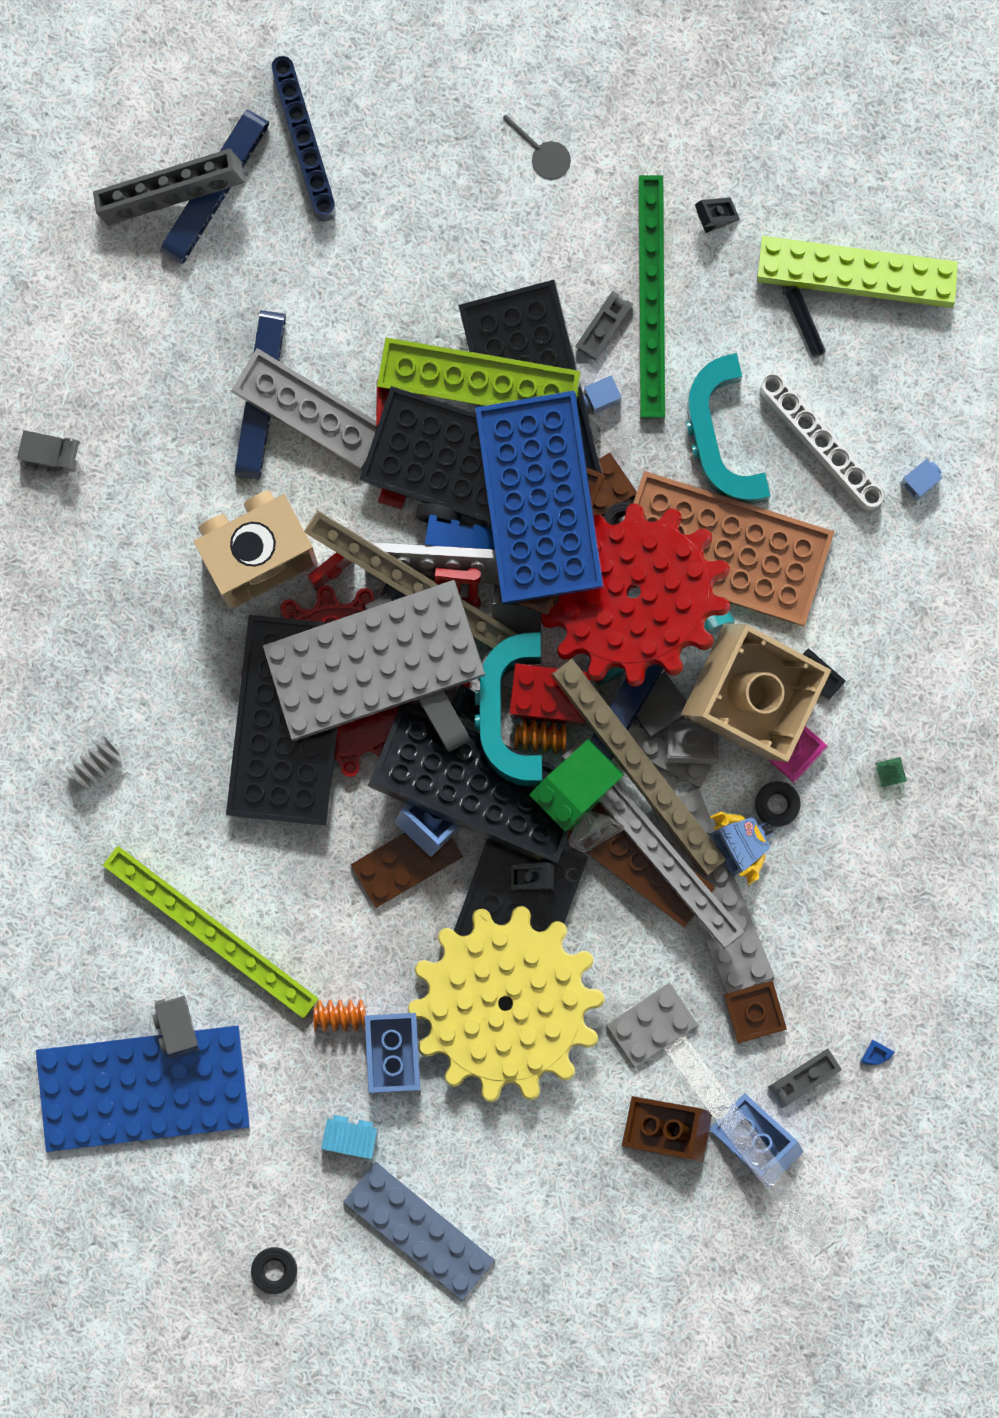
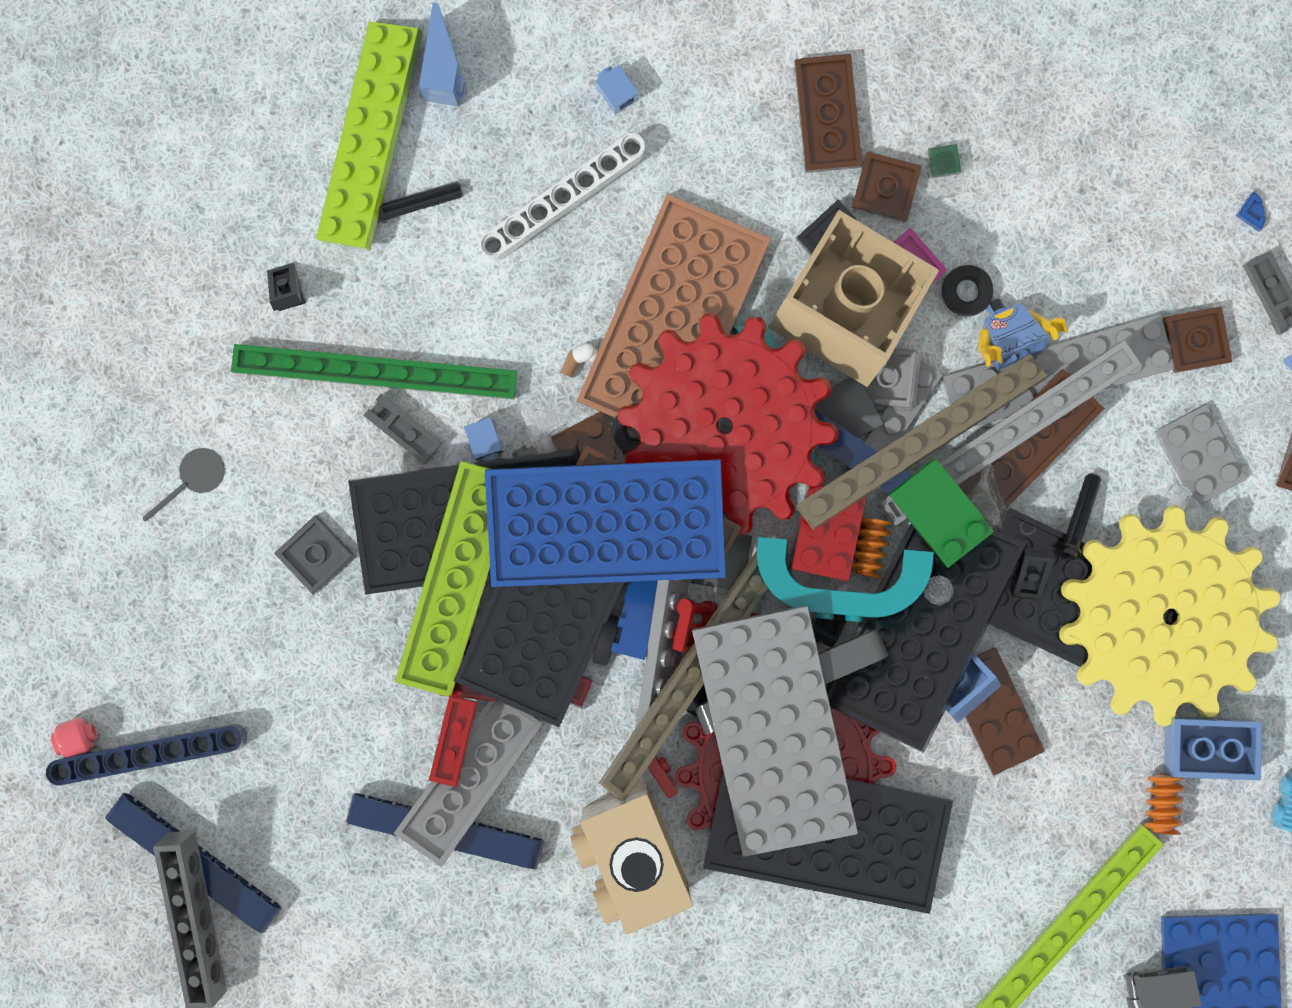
camera: 85 degrees left, 5 degrees up
(312, 76) = (73, 737): none -> coral head
(339, 391) = (453, 741): none -> red tile
(488, 262) = (314, 554): none -> dark grey tile
(509, 791) = (938, 590): none -> clear plate
(584, 918) = (1070, 547): none -> black axle
(683, 467) = (578, 355): none -> arm
(714, 375) = (555, 327): teal arch -> none
(862, 723) = (886, 186): none -> reddish brown plate
(922, 666) = (828, 113): none -> reddish brown plate
(923, 325) = (440, 74): none -> medium blue slope

